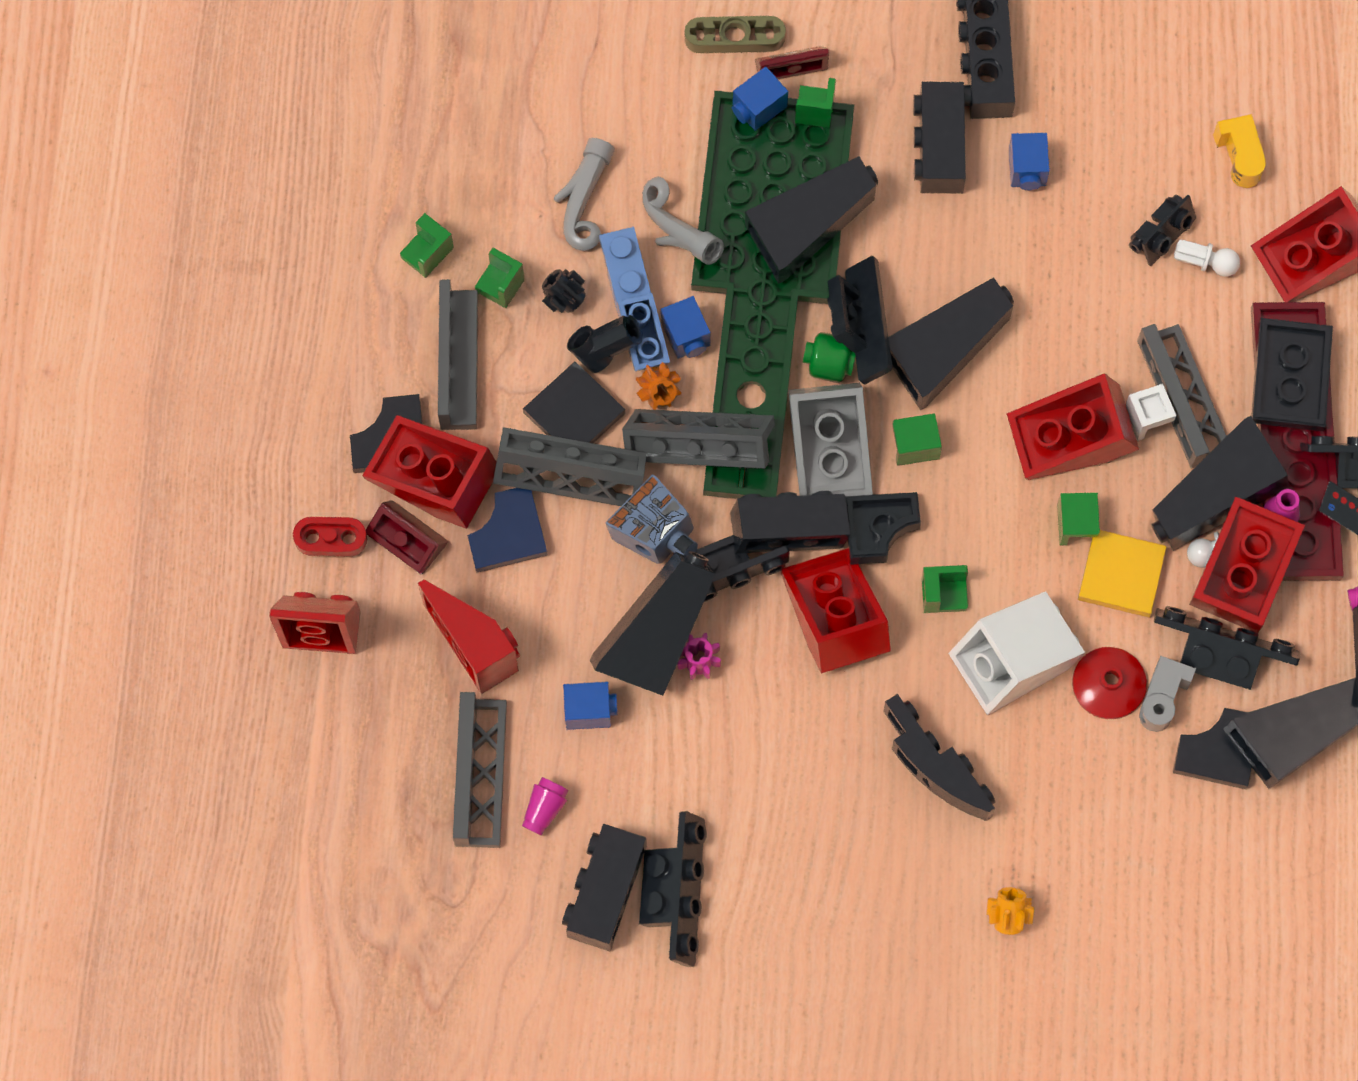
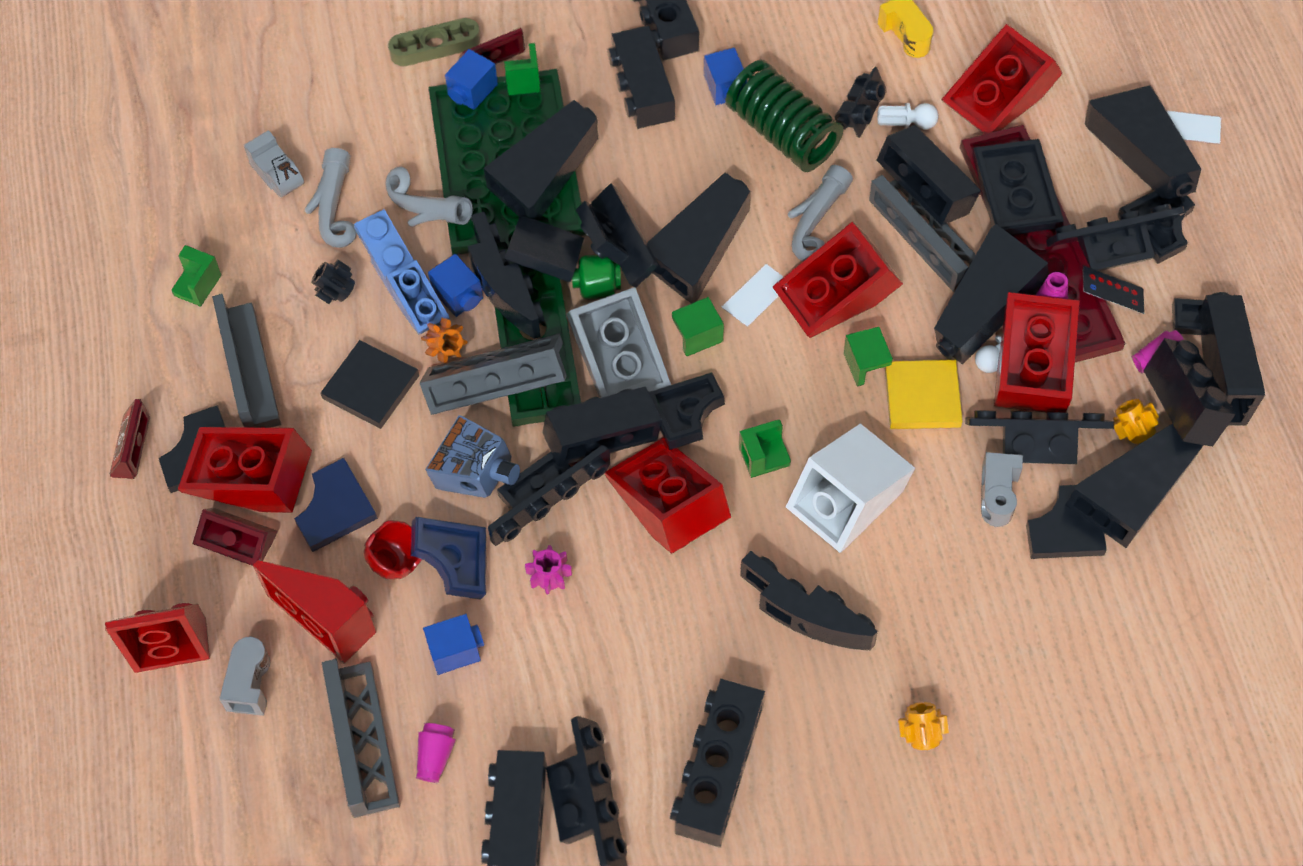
camera: 15 degrees left, 10 degrees down
(325, 409) = (130, 441): none -> dark red slope
(331, 534) = (160, 554): red plate -> none
(384, 682) = (243, 677): none -> light grey leg
(501, 278) = (272, 286): green panel -> none
(533, 139) = (273, 164): none -> light grey leg
(555, 596) = (389, 550): none -> red hair
(571, 461) = (375, 421): dark grey fence -> none
(598, 346) = (378, 319): black piece -> none
(602, 603) = (455, 553): none -> dark blue tile
(657, 626) = (501, 547): black slope -> none
(731, 341) = (503, 281): none -> black slope
(784, 316) = (544, 248): none -> black tile
(784, 944) = (709, 821): none -> black brick
(986, 417) = (754, 296): none -> white sticker
(1075, 227) = (782, 115): none -> dark green piece
(1105, 315) = (815, 207): none -> light grey plant
(1105, 699) = (941, 507): red dish -> none
(1149, 410) = (901, 246): white panel -> none
(1204, 334) = (928, 175): none -> black brick
(1323, 662) = (1135, 421): none -> light orange gear

